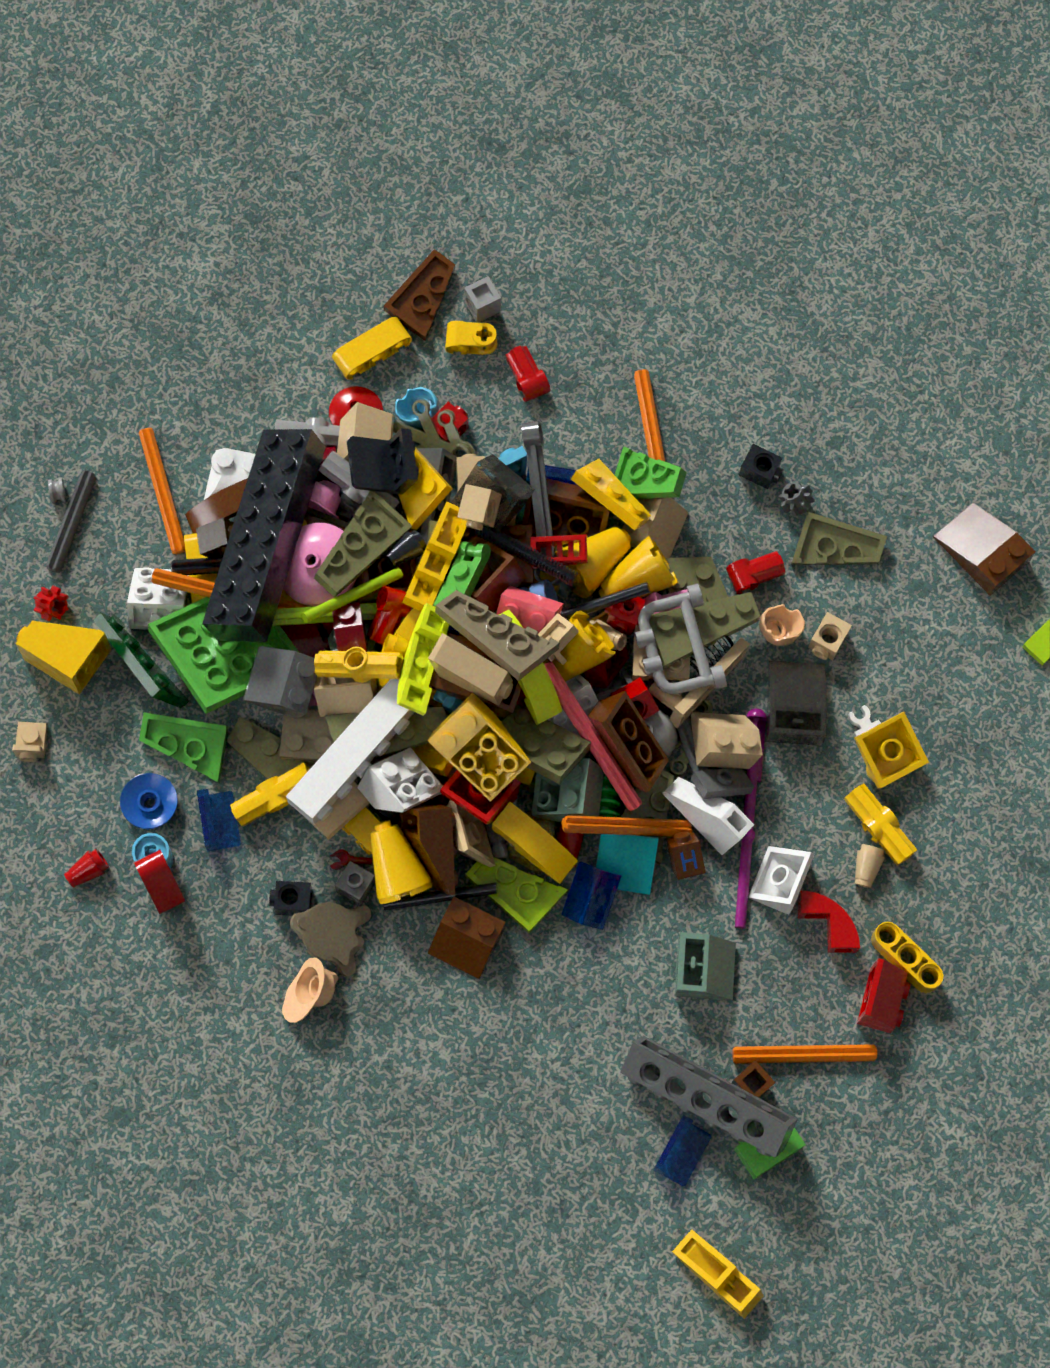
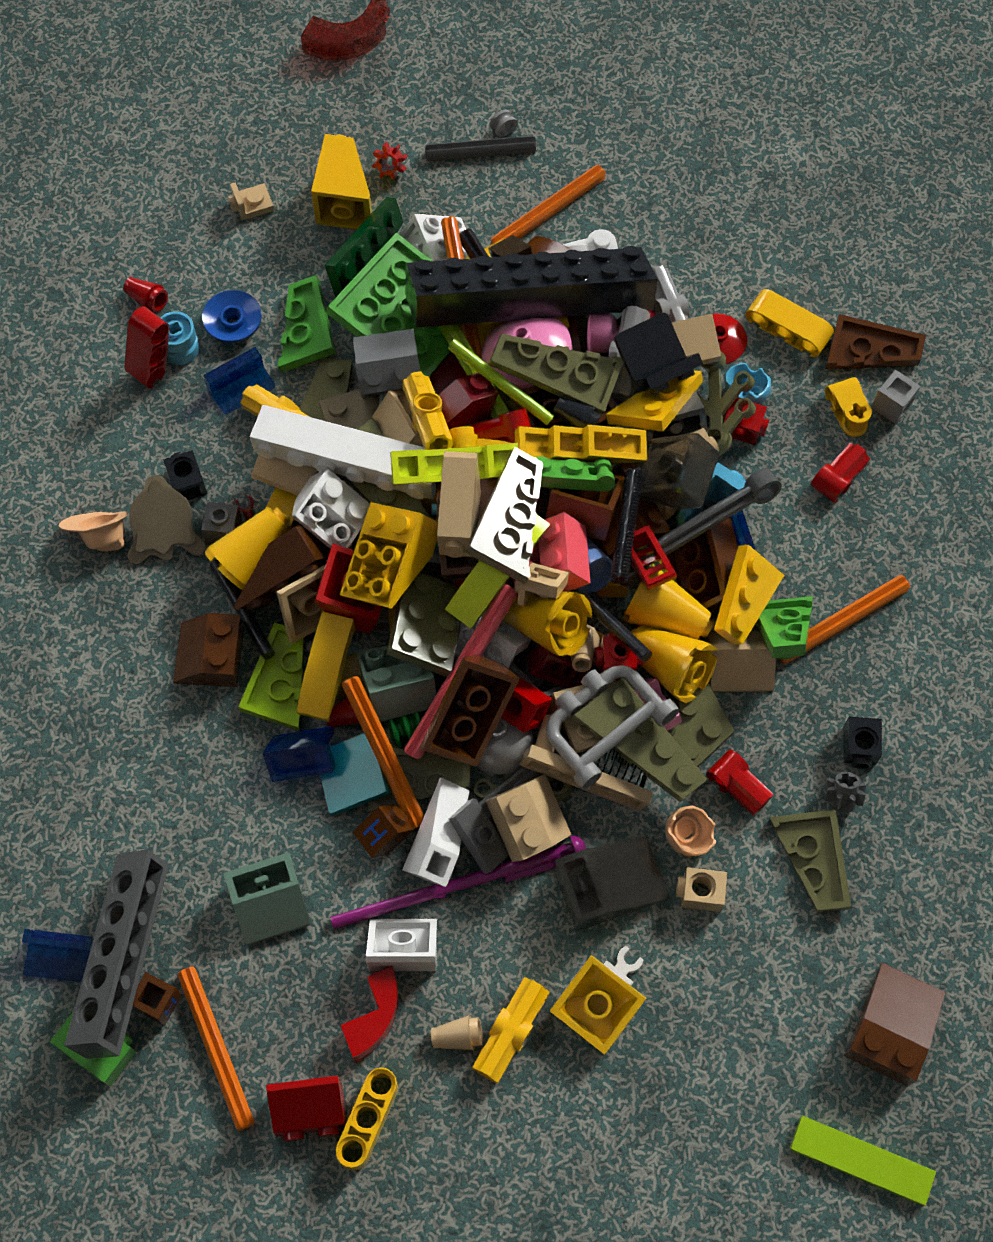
camera: 70 degrees right, 5 degrees down
(479, 507) = (649, 454): tan brick -> none

